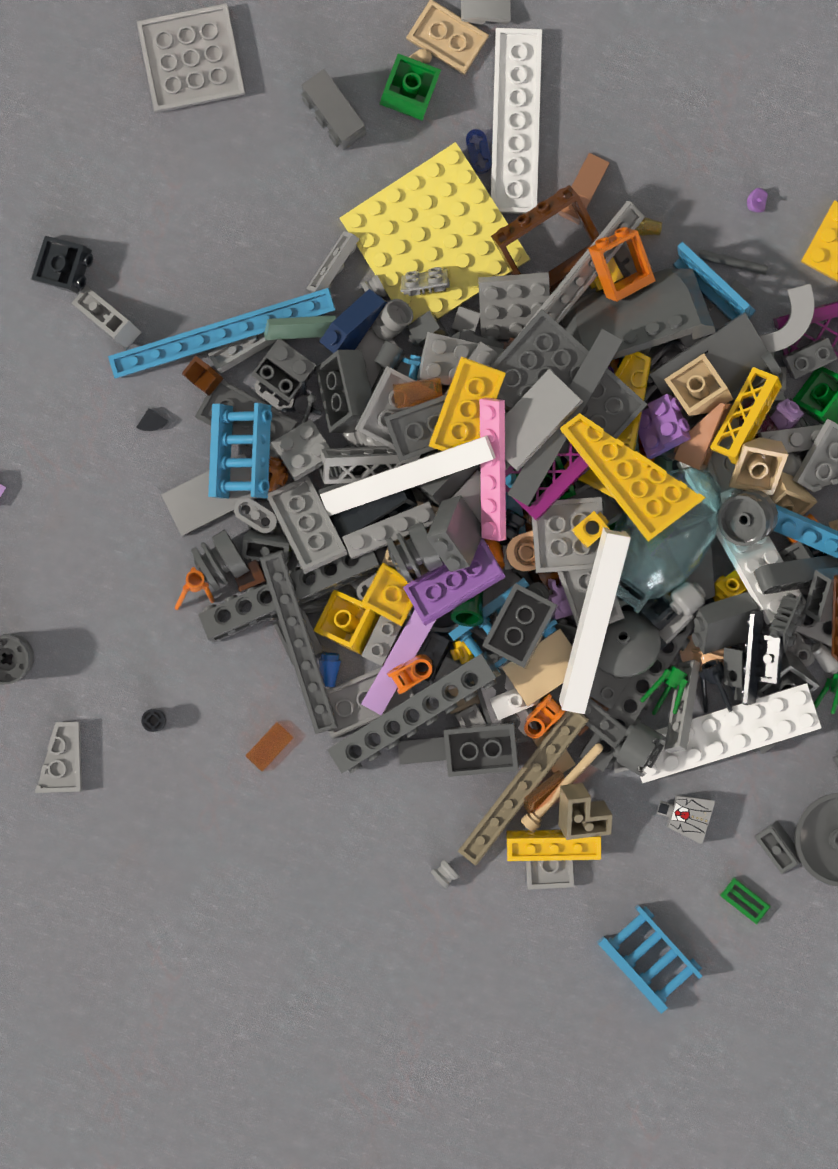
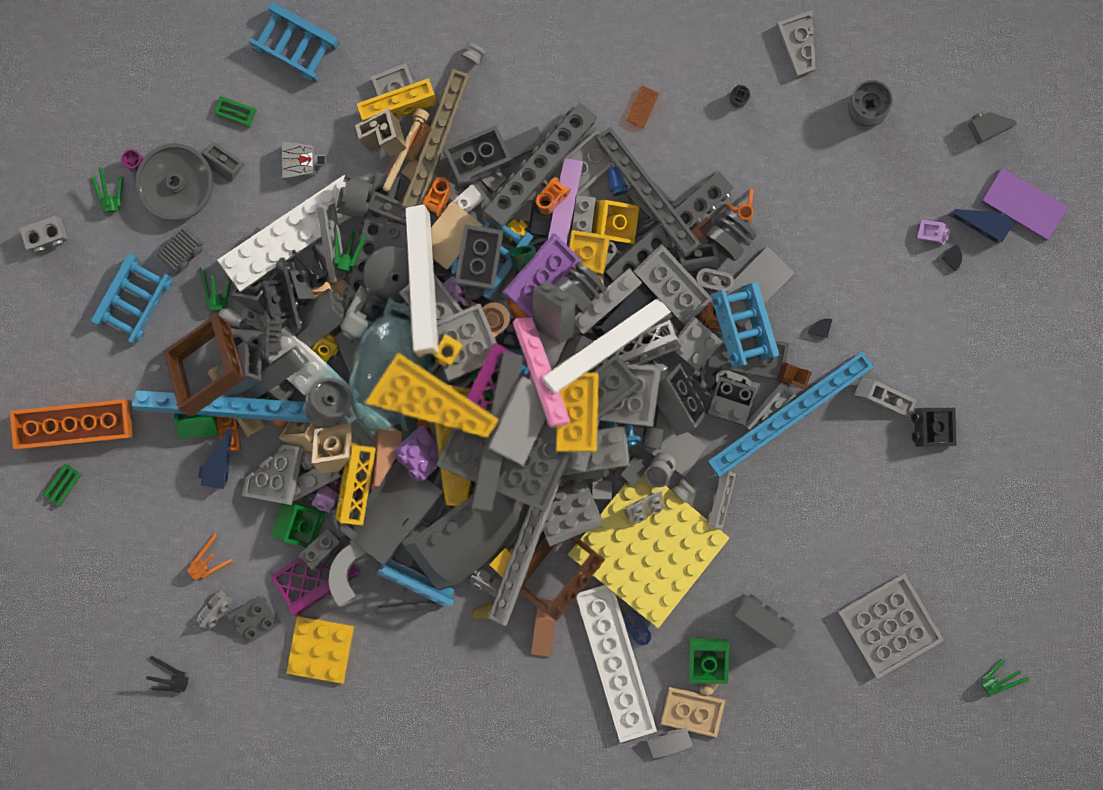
camera: 160 degrees right, 0 degrees up
(297, 327) = (730, 438): sand green tile -> none
(353, 323) = (689, 455): dark blue slope -> none
(416, 392) = (621, 414): clear orange tile -> none
(632, 283) = (481, 560): orange window -> none
(698, 387) = (400, 493): tan slope -> none
(757, 200) = (404, 662): medium lavender piece -> none

